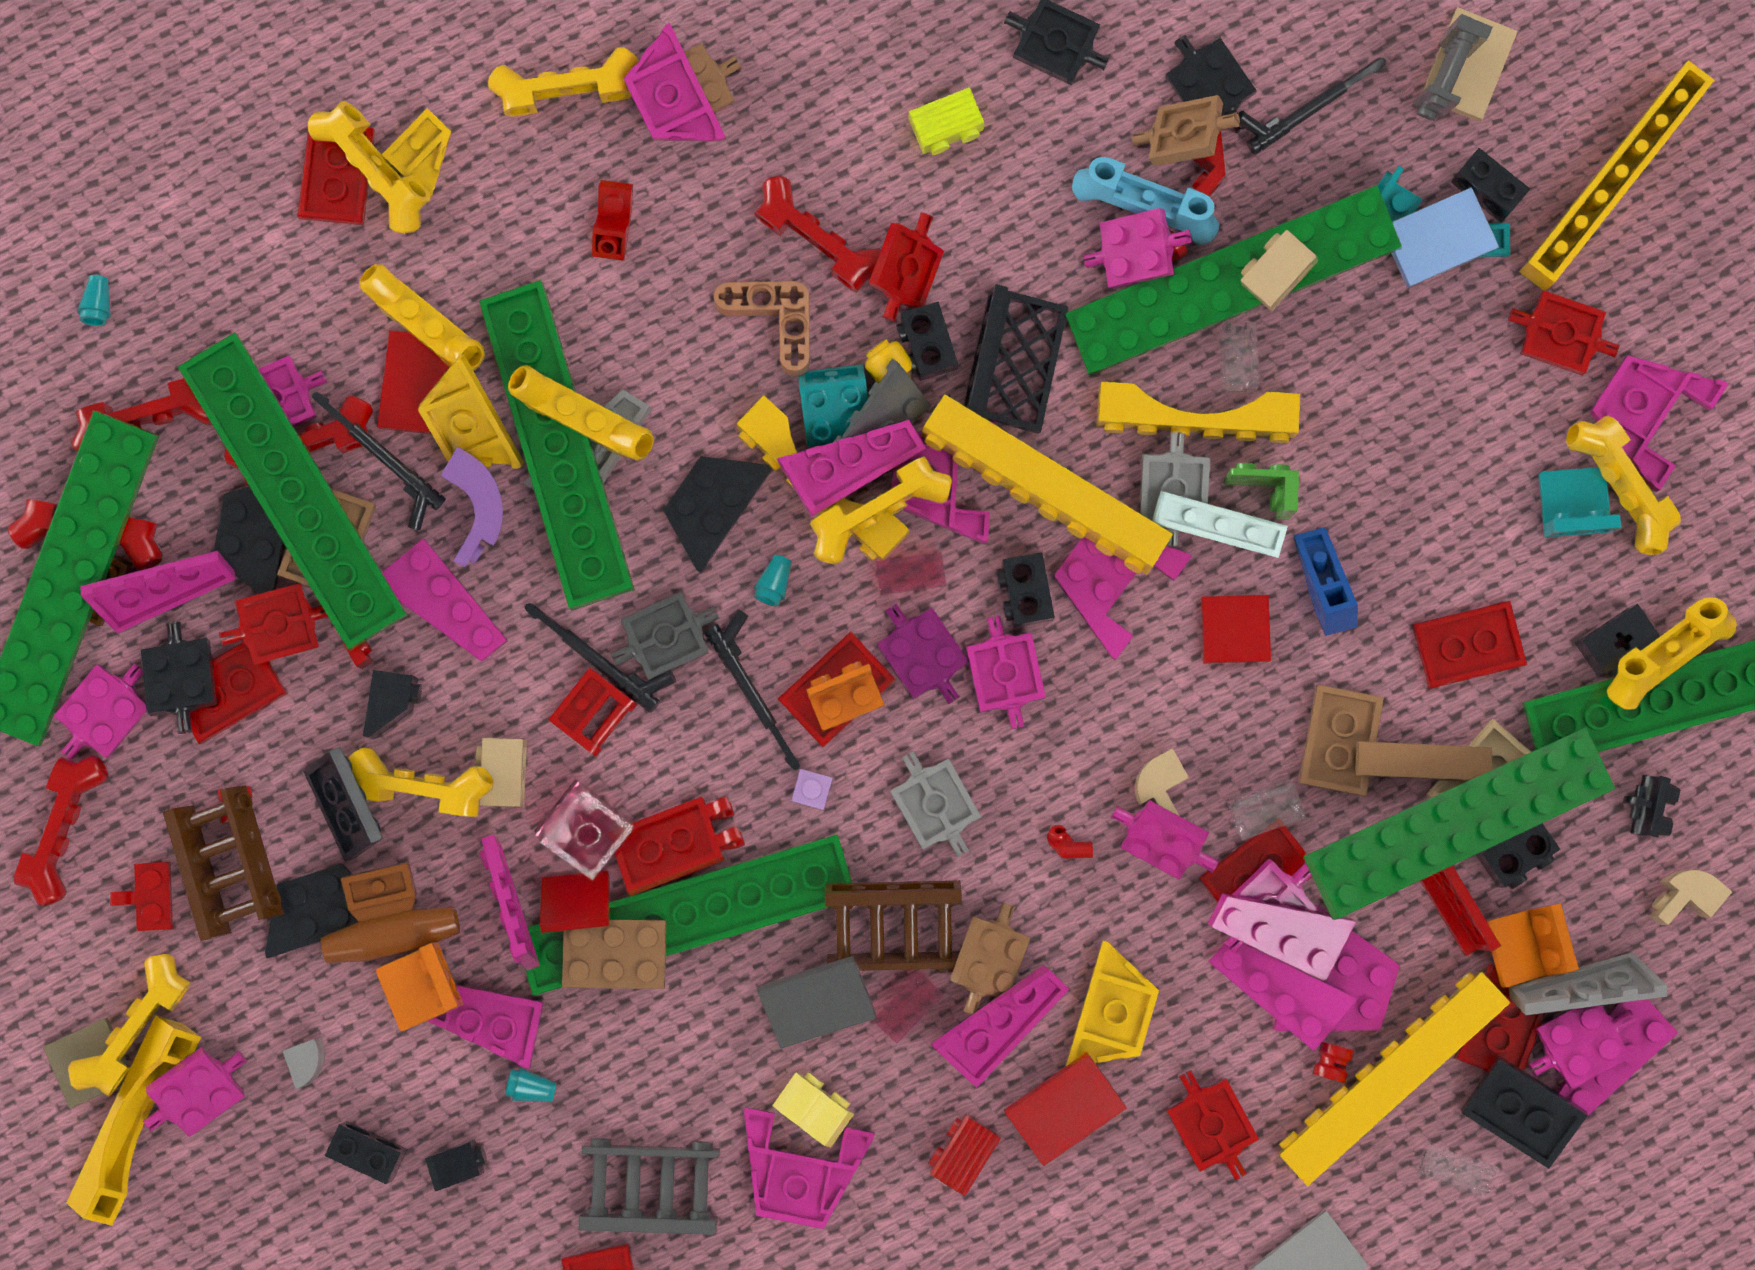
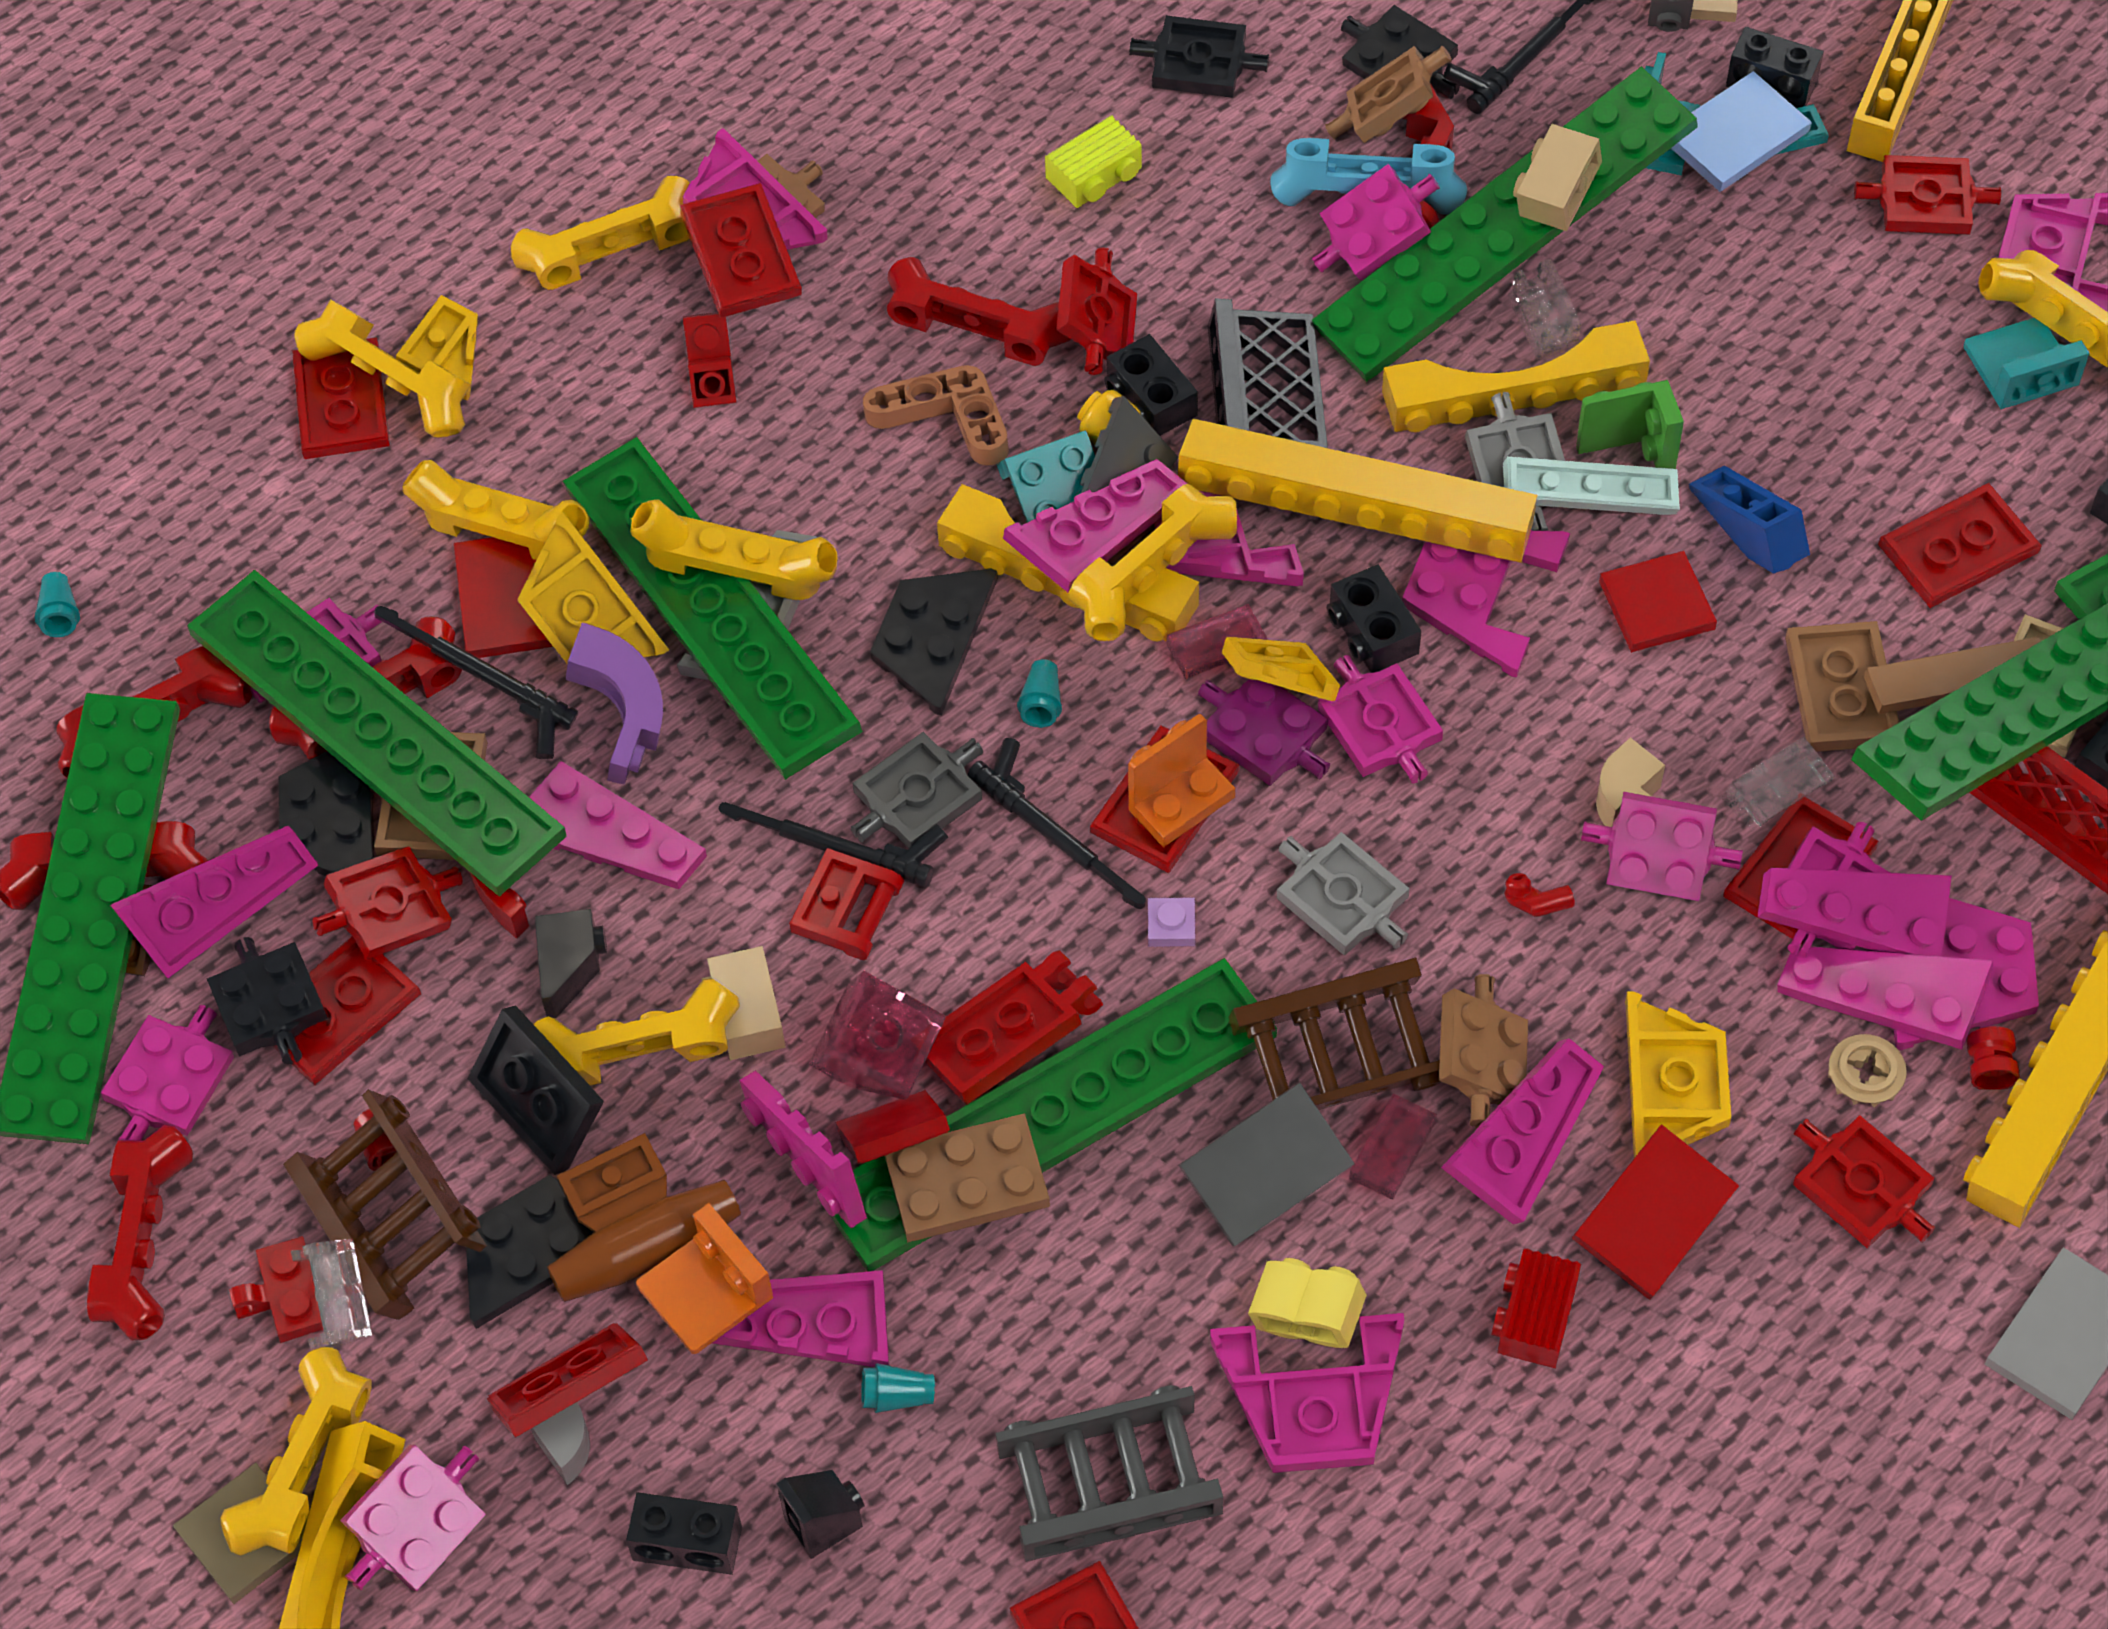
camera: 15 degrees left, 25 degrees down
(176, 920) = (337, 1292): none -> clear hinge
(314, 1025) = (566, 1379): none -> red tile
(654, 141) = (740, 250): none -> red tile
(947, 614) = (1281, 664): none -> yellow wing
(1261, 1039) = (1855, 1052): none -> tan gear

